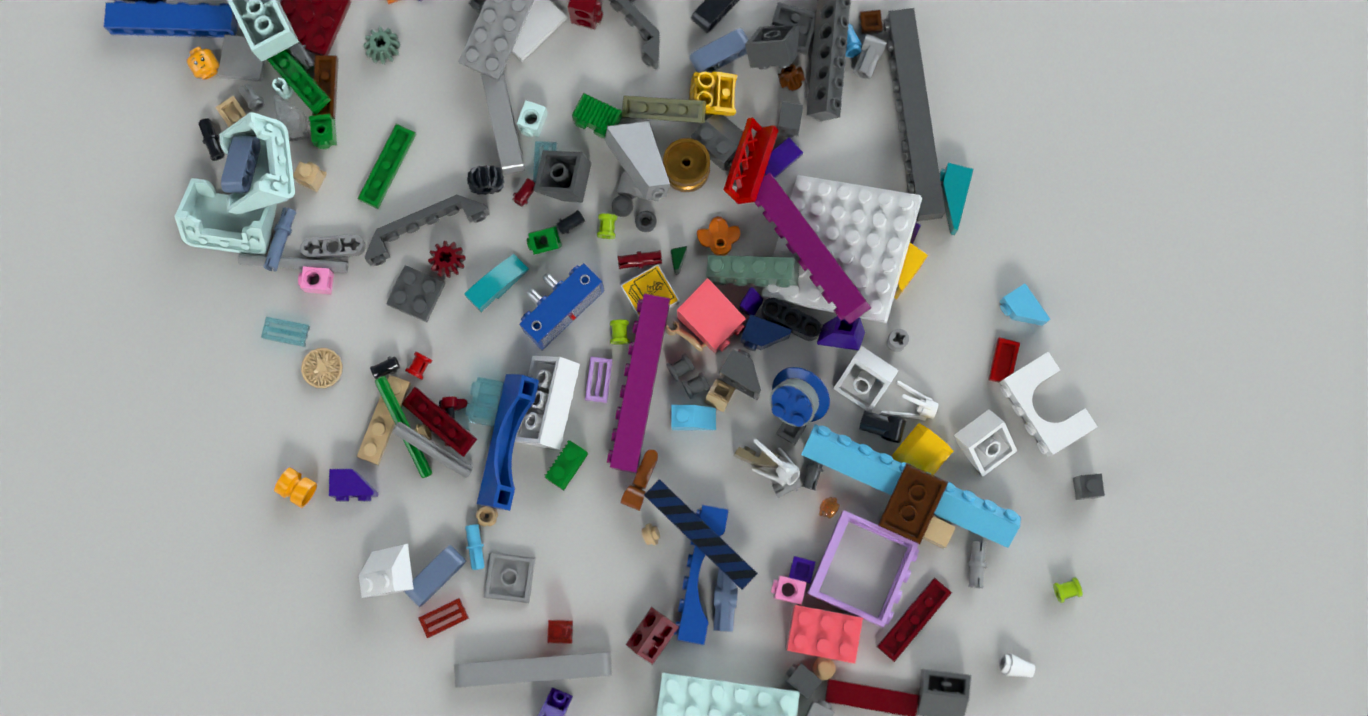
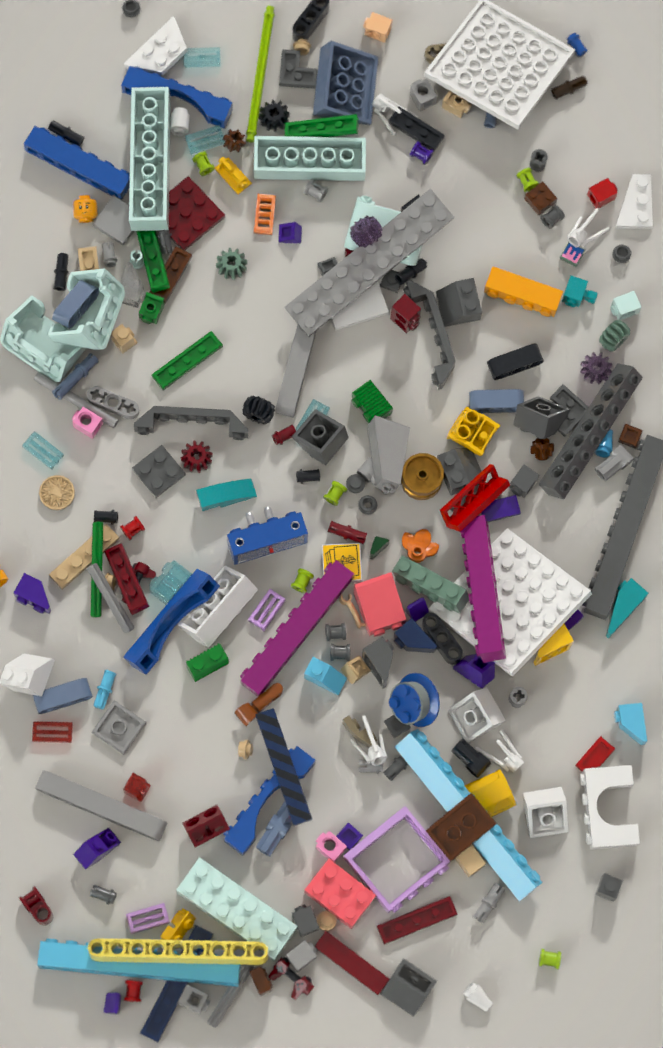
camera: 20 degrees right, 5 degrees down
(482, 520) = (125, 665): tan plate -> none
(532, 110) = (323, 373): light aqua brick -> none
(534, 241) = (271, 479): green brick -> none
(664, 109) = (427, 423): olive plate -> none
(829, 507) = (395, 799): clear orange plate -> none

